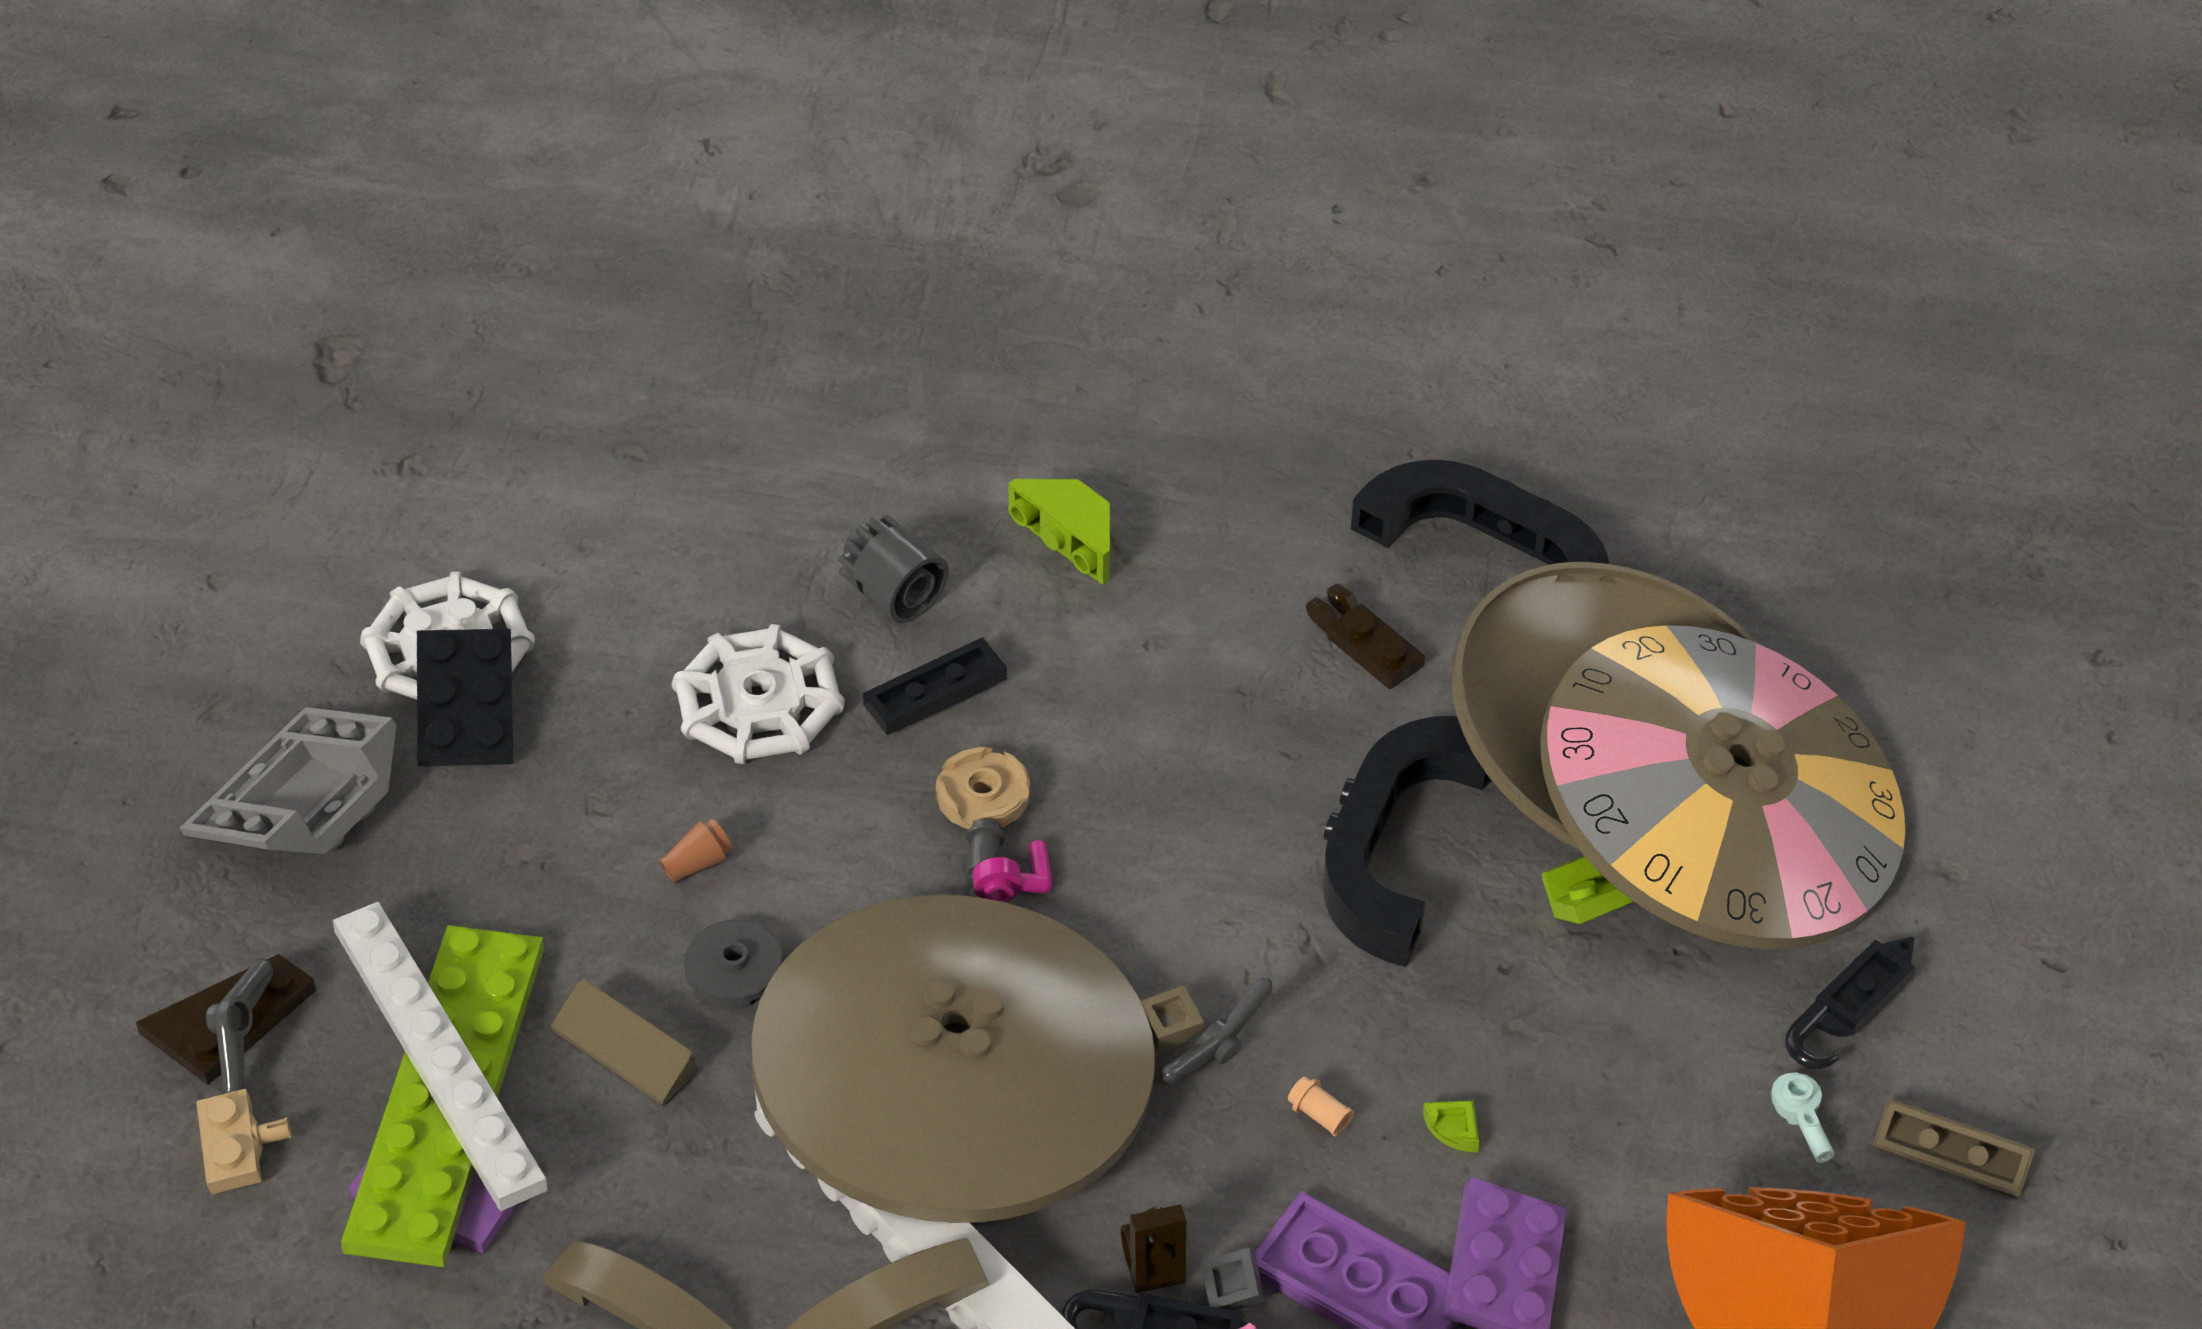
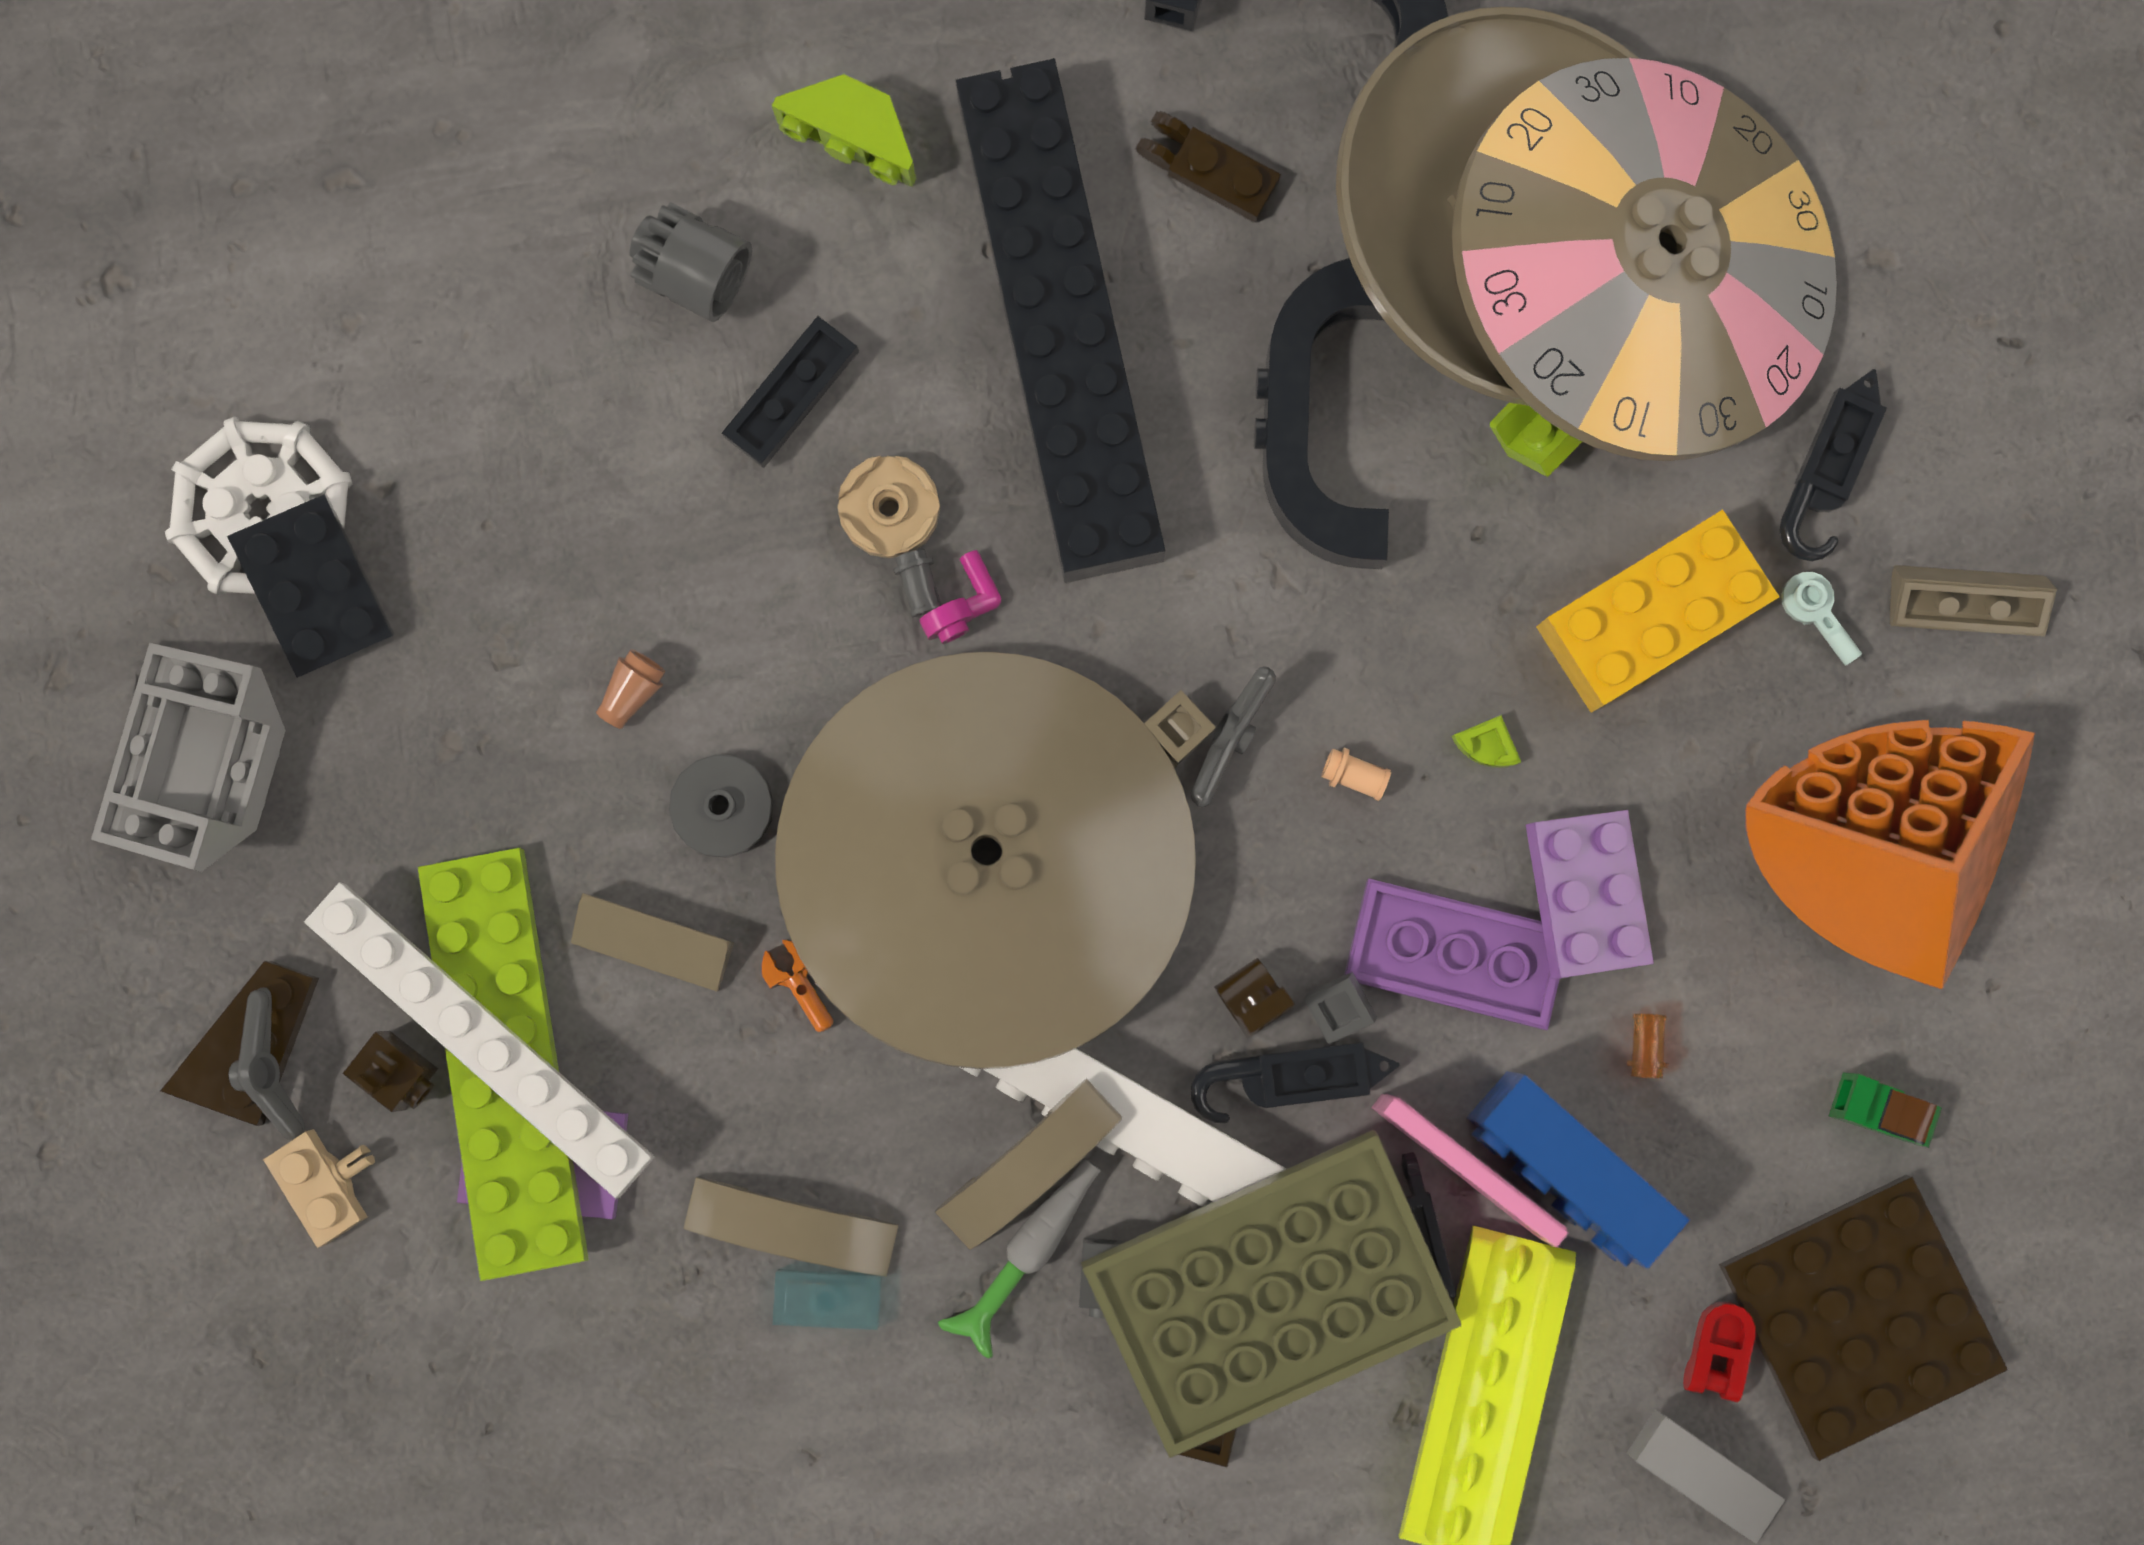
camera: 15 degrees left, 35 degrees up
(344, 1065) = (391, 1072): none -> dark brown brick
(738, 1116) = (799, 986): none -> orange bar
(753, 661) = (606, 492): white plate -> none
(1187, 707) = (1060, 321): none -> black piece
(1646, 1058) = (1657, 611): none -> yellow brick

